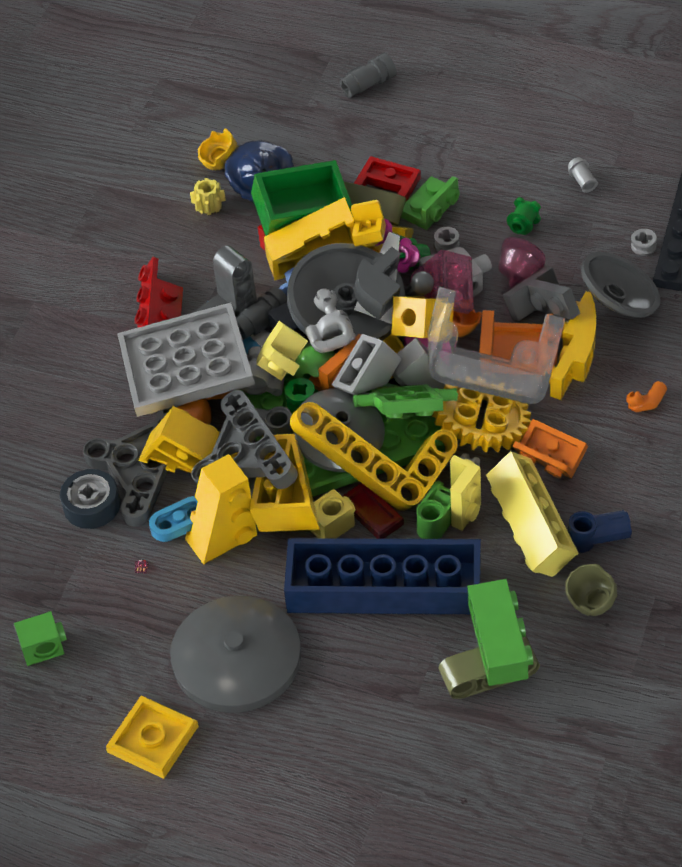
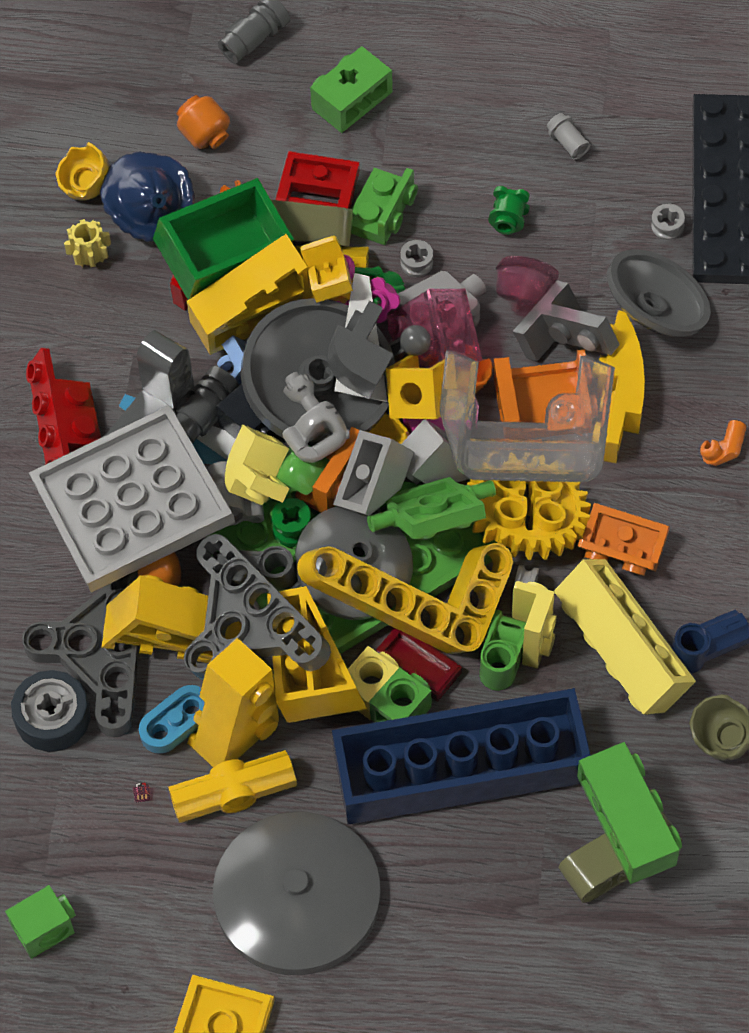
camera: 15 degrees left, 10 degrees up
(207, 570) = (232, 786): none -> yellow piece
(313, 129) = (203, 122): none -> orange head
(350, 526) = (401, 686): none -> bright green brick
(428, 122) = (351, 89): none -> bright green brick

